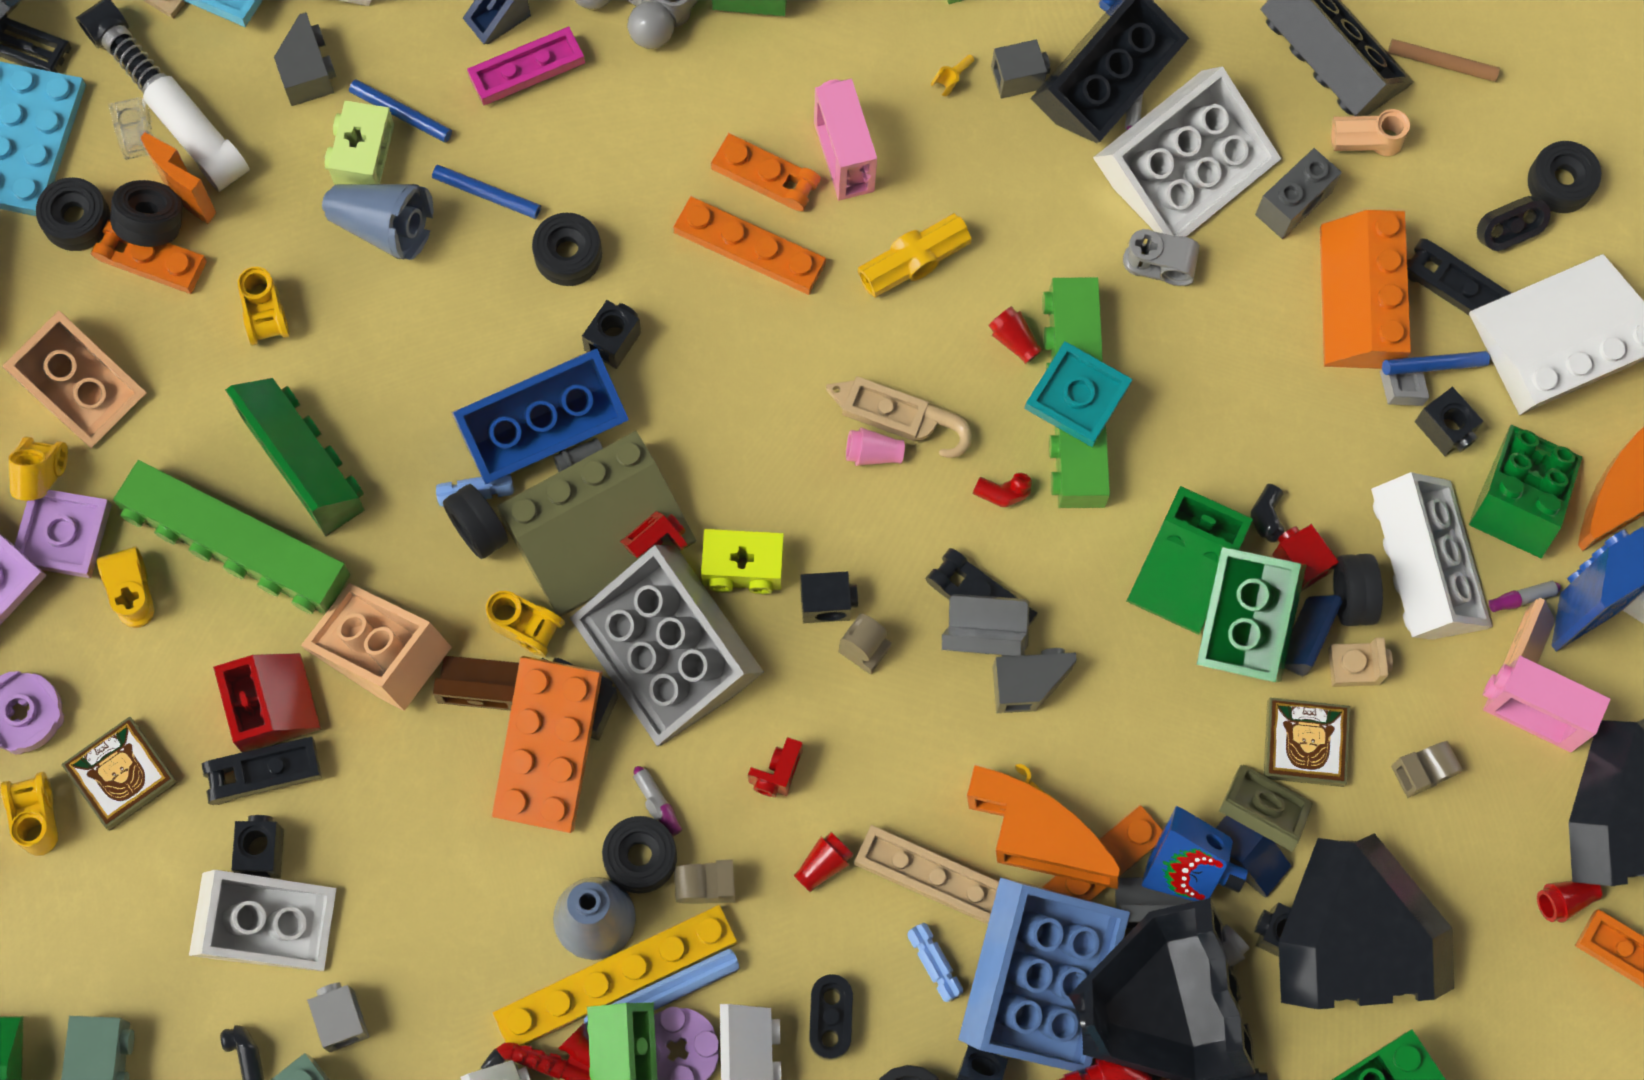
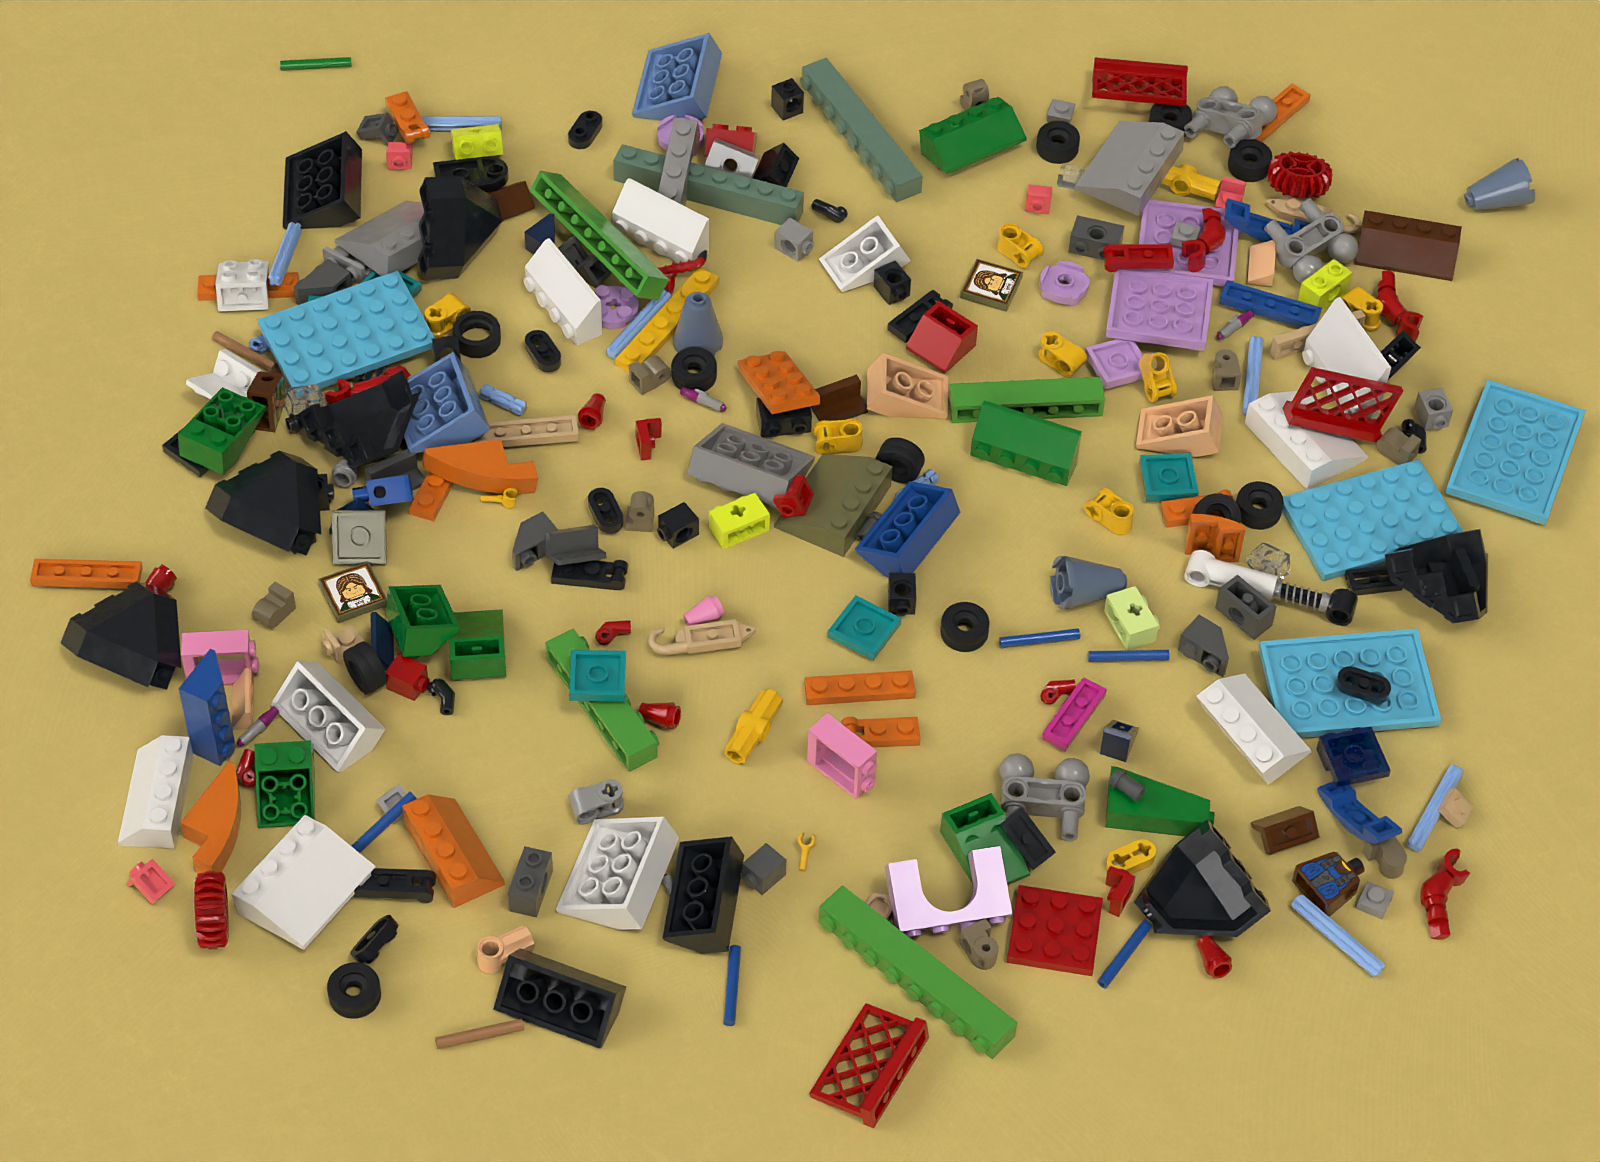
camera: 150 degrees right, 20 degrees down
(148, 317) = (1168, 476): none -> teal plate
(218, 74) = (1245, 607): none -> dark grey brick
(521, 114) = (1055, 689): none -> red arm
(689, 316) = (864, 627): none -> teal plate
(905, 681) = (607, 512): none -> black plate
(1453, 407) = (362, 802): black brick -> none
(1566, 540) = (245, 770): none -> red arm

